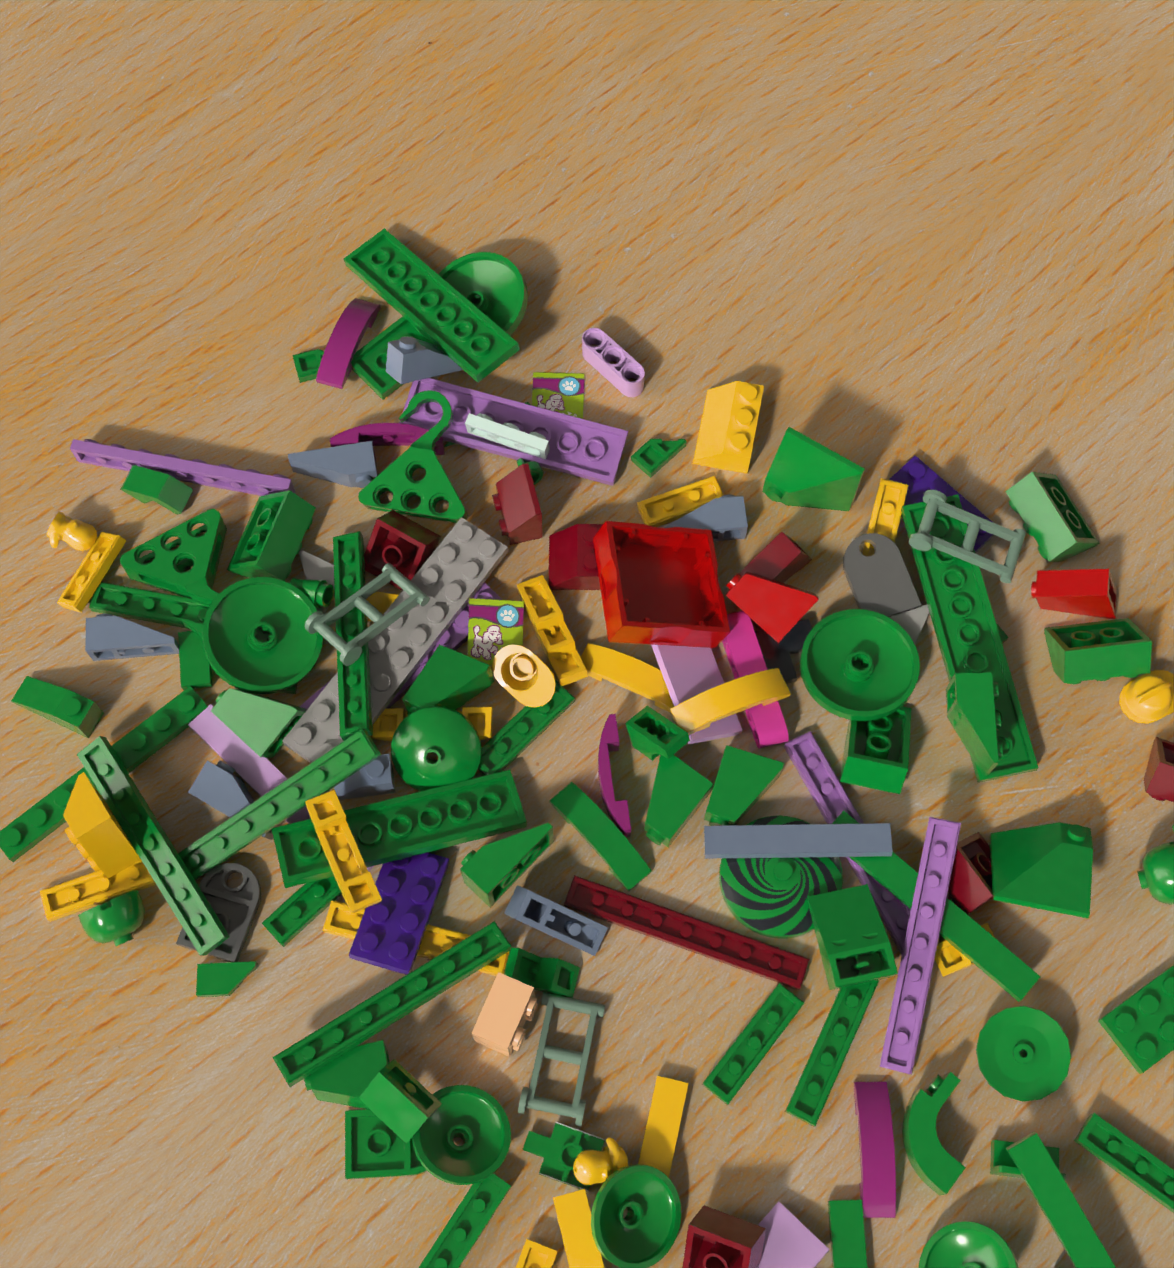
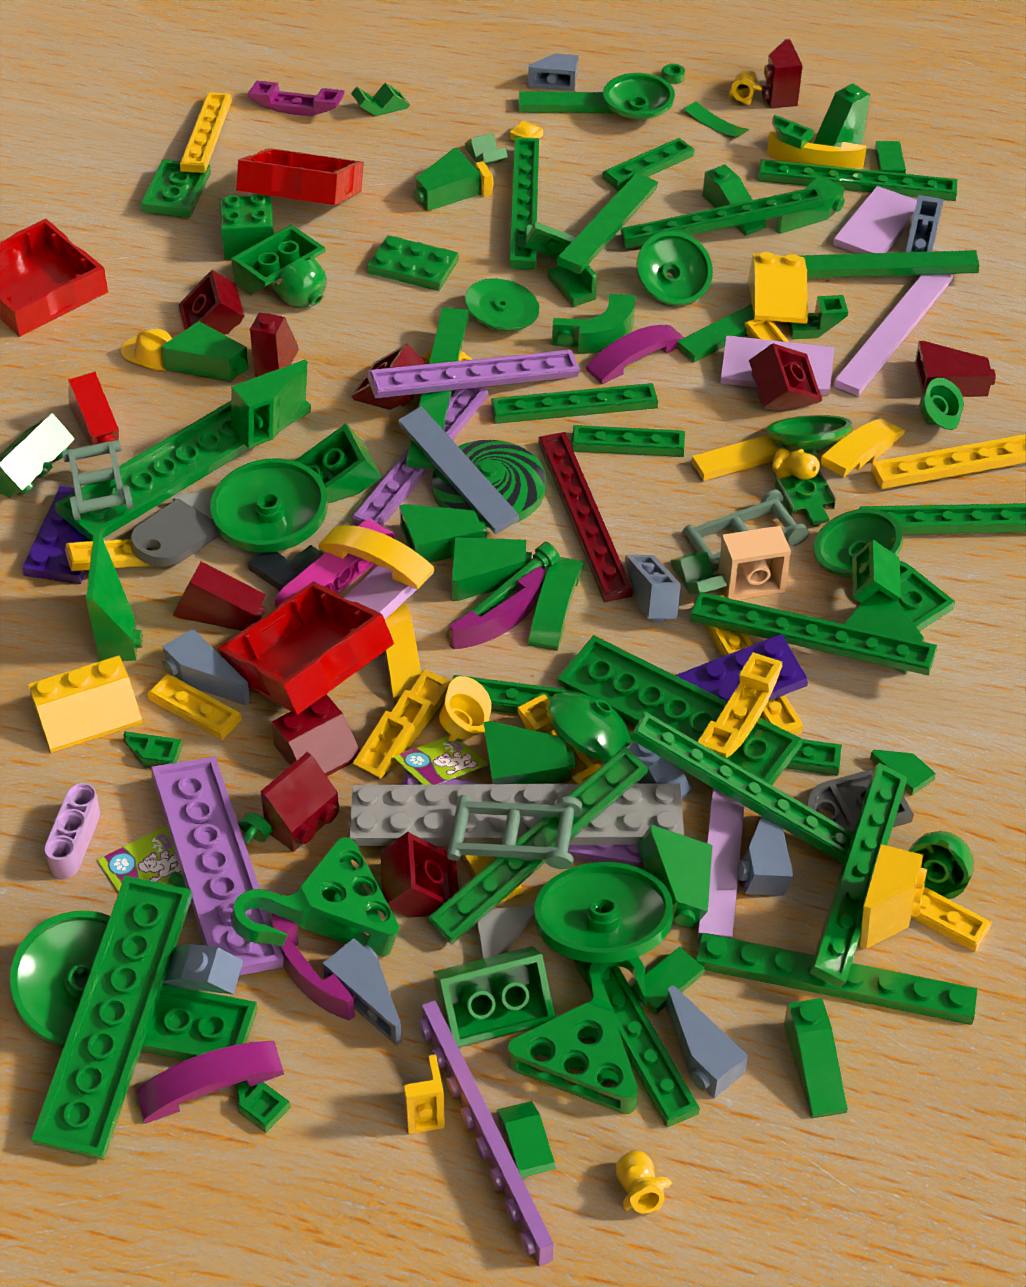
camera: 125 degrees left, 20 degrees down
(91, 571) = (663, 1133): yellow tile -> none
(220, 440) = (425, 1102): none -> yellow panel
(316, 590) = (521, 911): green cone -> none
(503, 862) = (637, 624): green slope -> none
(507, 435) = (232, 846): light aqua plate -> none
(641, 845) = (544, 556): none -> green piece
(655, 734) = (446, 585): green arch -> none
(770, 602) = (260, 566): red slope -> none
(851, 937) = (508, 405): green slope -> none
(1044, 867) = (356, 336): green slope -> none
(1076, 785) = (271, 343): none -> dark red slope
(1098, 650) = (137, 386): green slope -> none
(1102, 1178) = (546, 239): none -> green panel
(1112, 731) = (205, 353): none -> green slope

